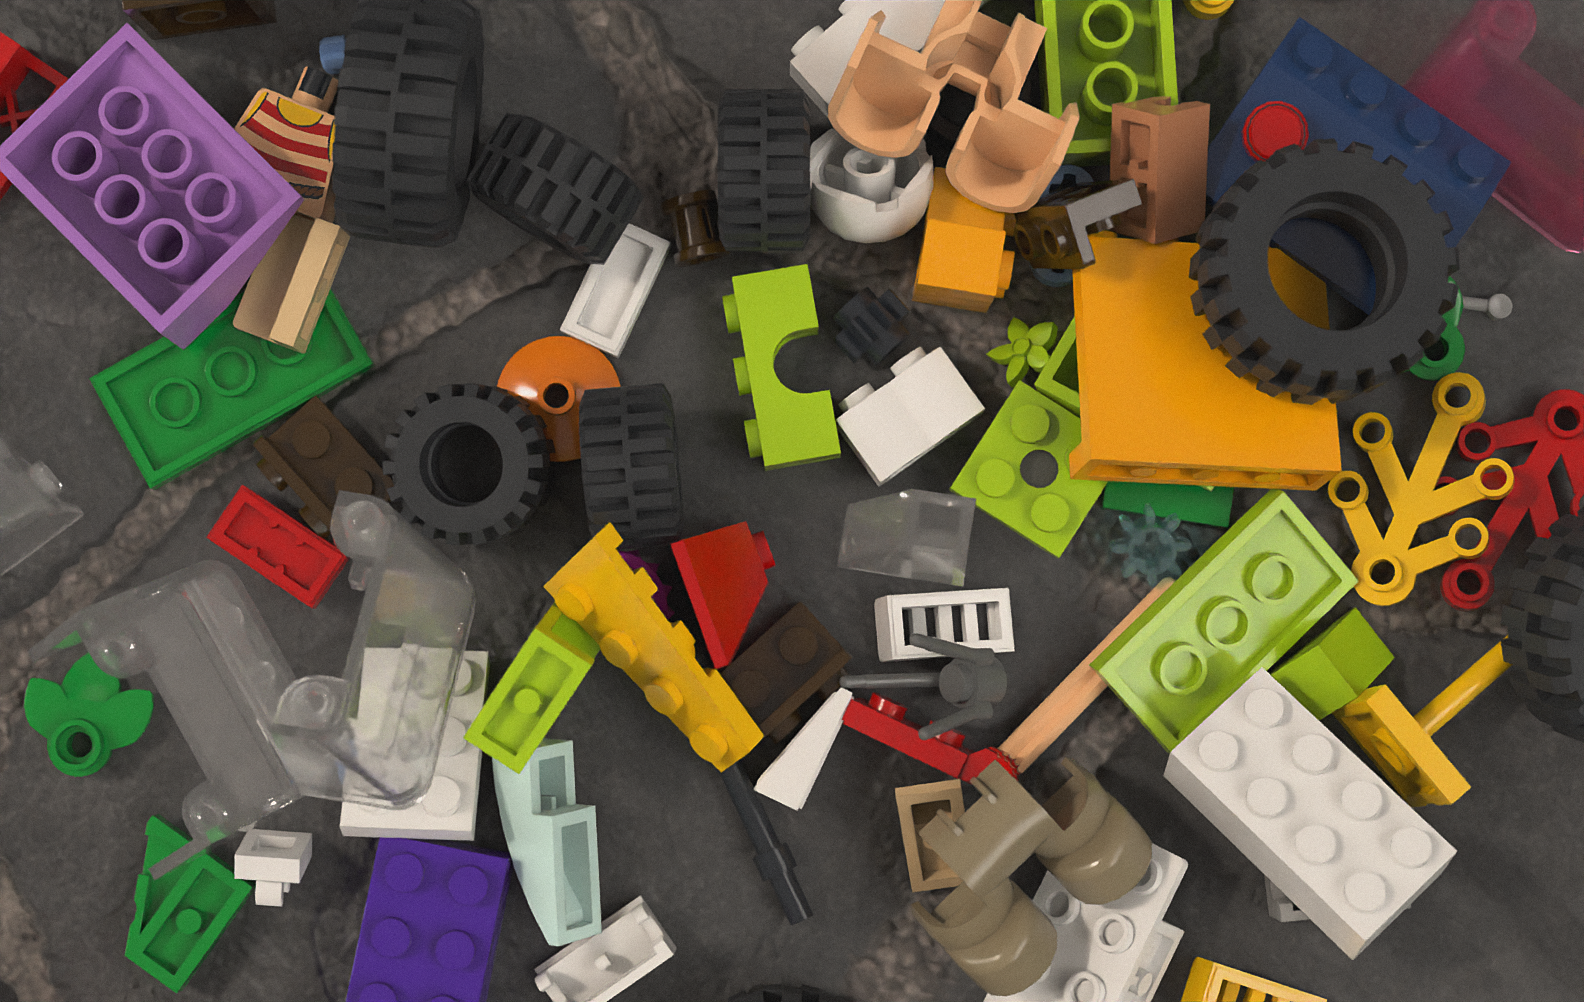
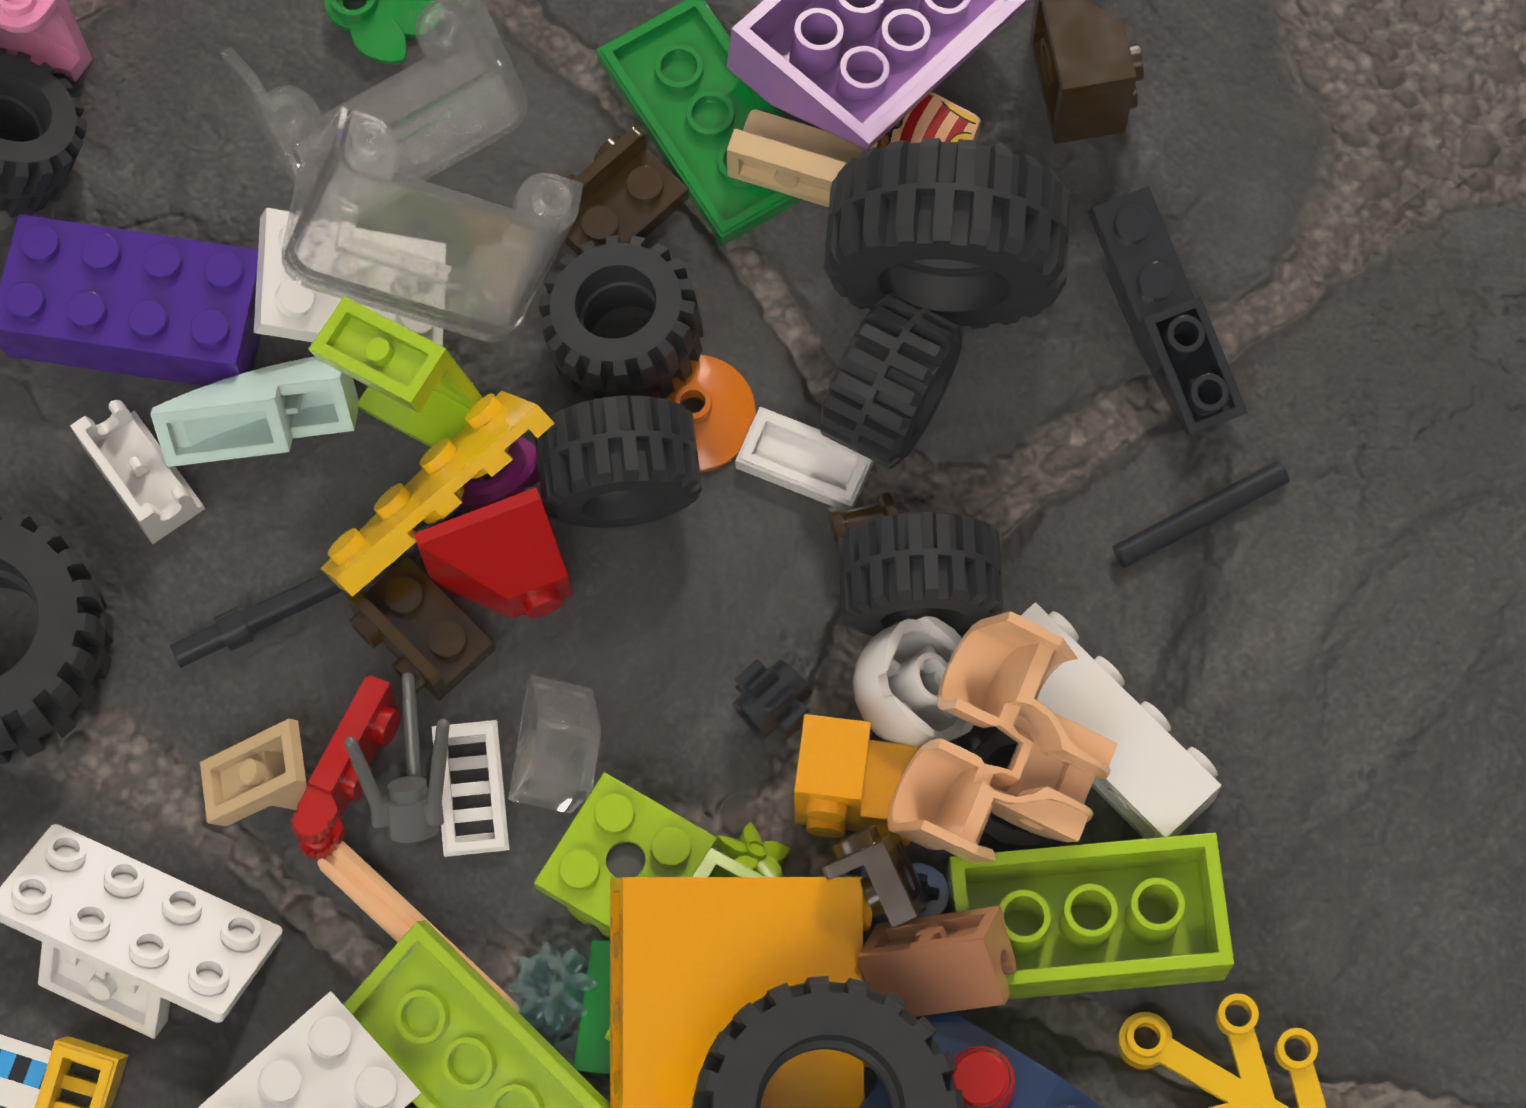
camera: 90 degrees right, 15 degrees down
(182, 911) = (197, 95): green wing -> none
(272, 861) = (241, 168): white tile -> none
(278, 546) = (551, 144): red plate -> none
(770, 312) = (777, 597): lime arch -> none
(799, 764) = (329, 646): white slope -> none
(908, 414) = (682, 738): white brick -> none
(1077, 836) = (160, 824): dark tan piece -> none

